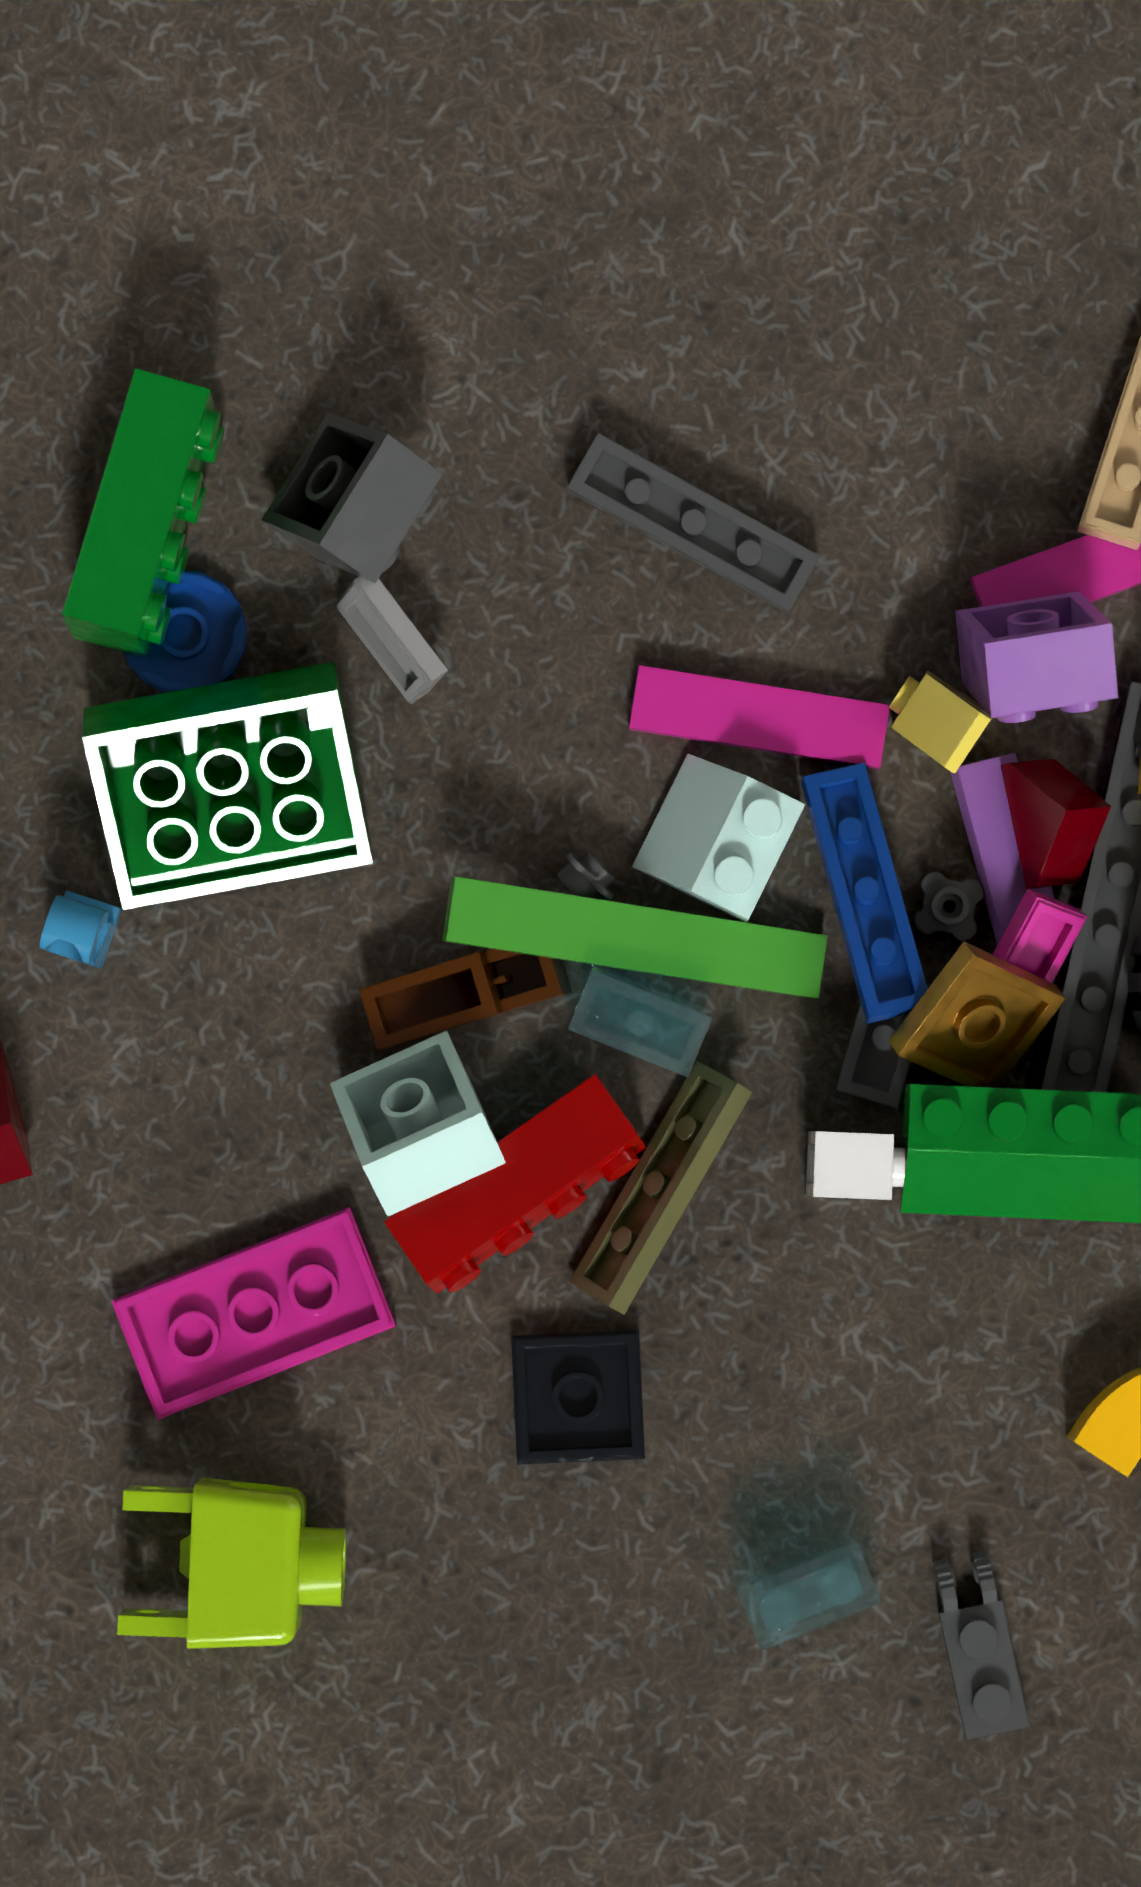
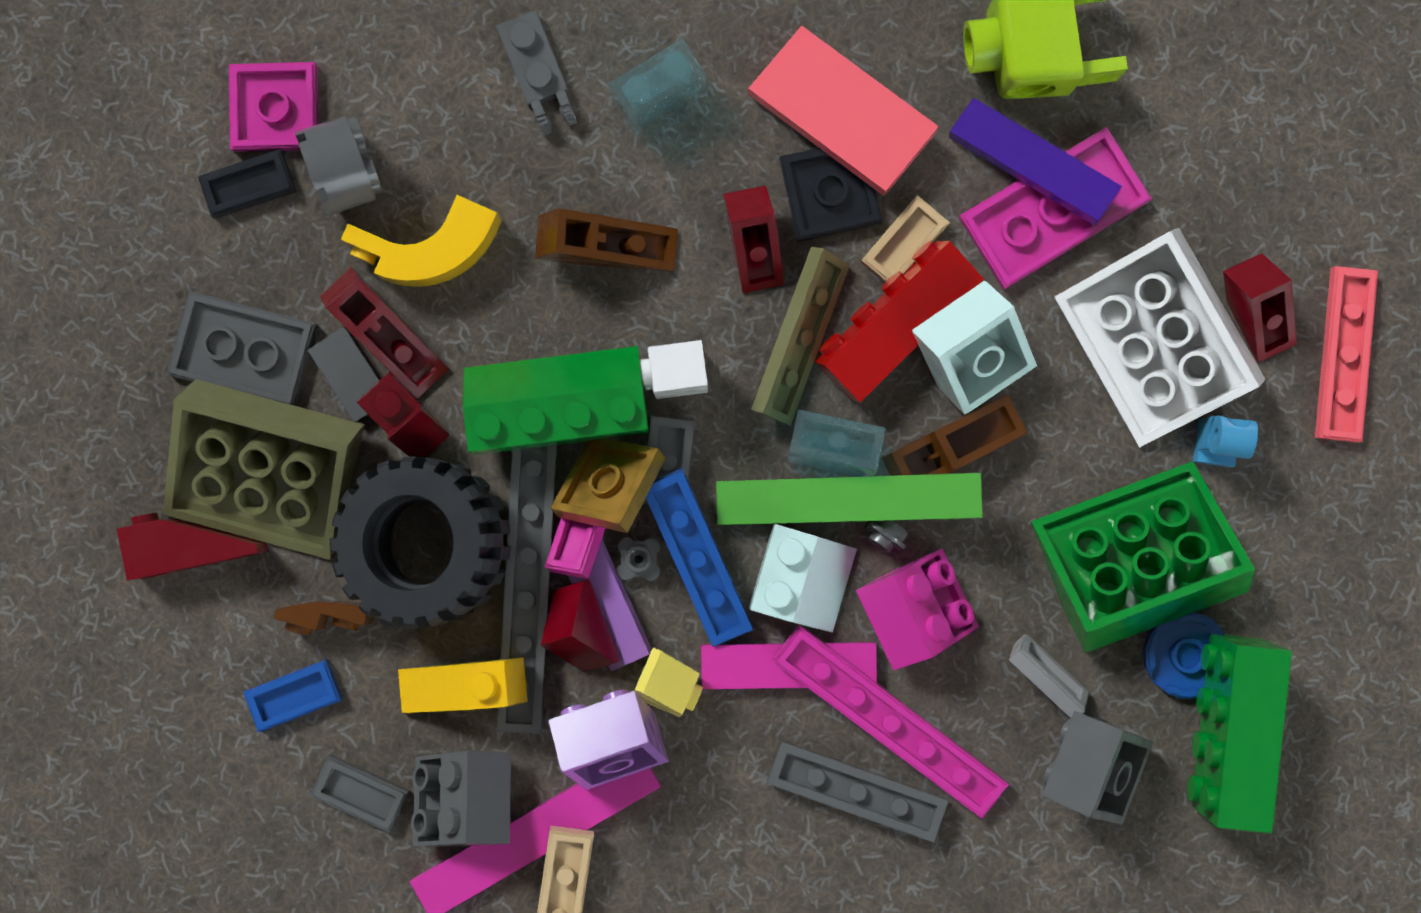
camera: 170 degrees right, 0 degrees up
(138, 1095) = (1160, 338): none -> white slope
(275, 1384) = (1035, 161): none -> dark purple tile
(469, 1316) = (907, 234): none -> tan tile
(541, 1510) = (842, 110): none -> coral tile
(560, 764) = (918, 609): none -> dark pink slope
(629, 613) = (890, 721): none -> dark pink tile
(704, 1342) = (754, 238): none -> dark red slope
(920, 1374) = (604, 241): none -> reddish brown slope

